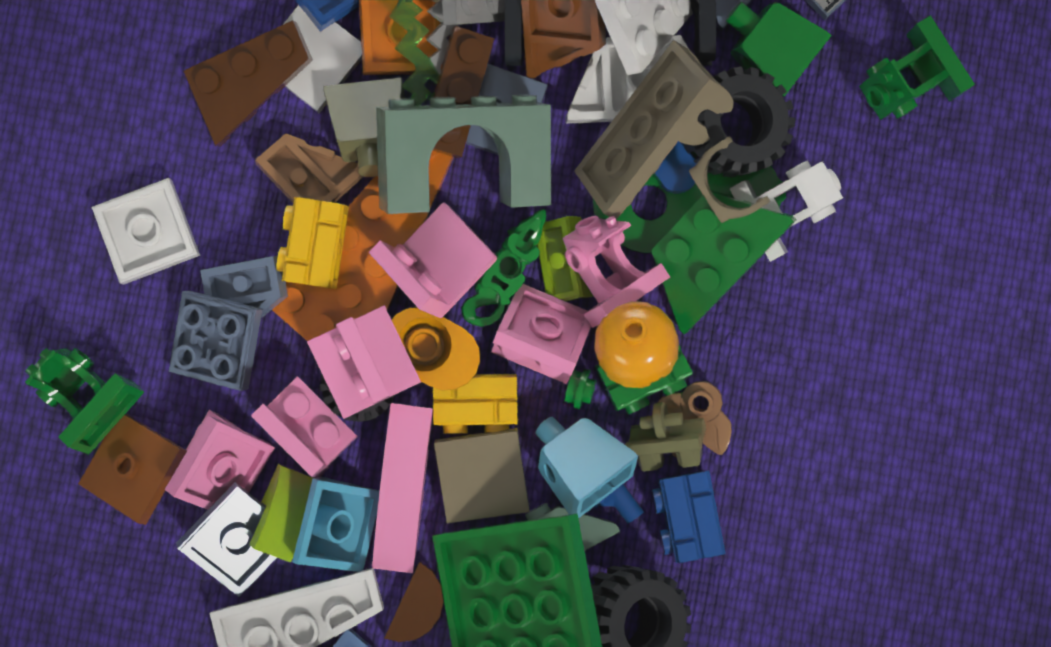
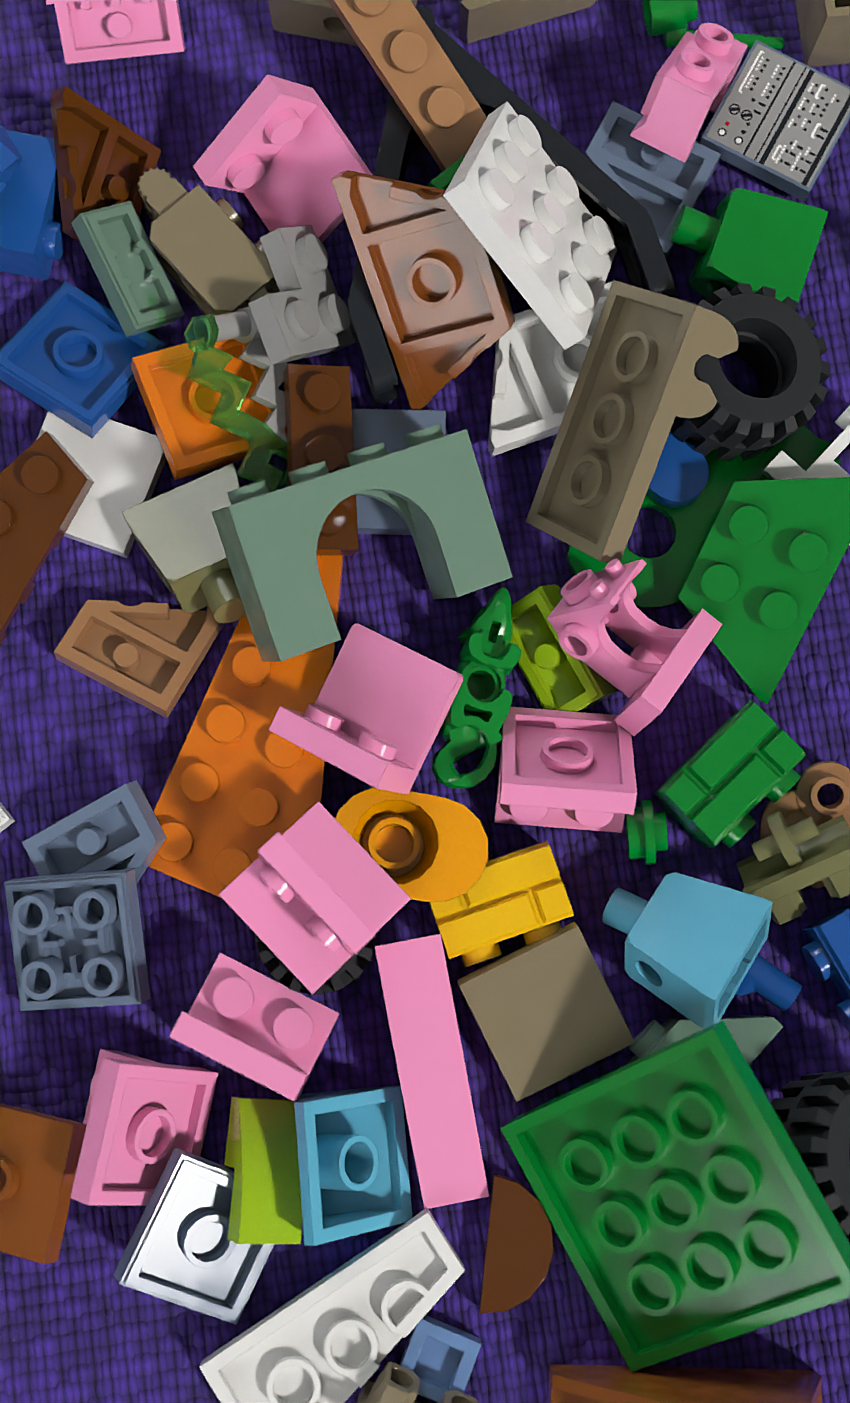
camera: 20 degrees left, 5 degrees down
(313, 242) = (179, 743): yellow brick -> none
(636, 344) = (712, 737): light orange cylinder -> none
(722, 211) = (773, 501): dark tan cap -> none

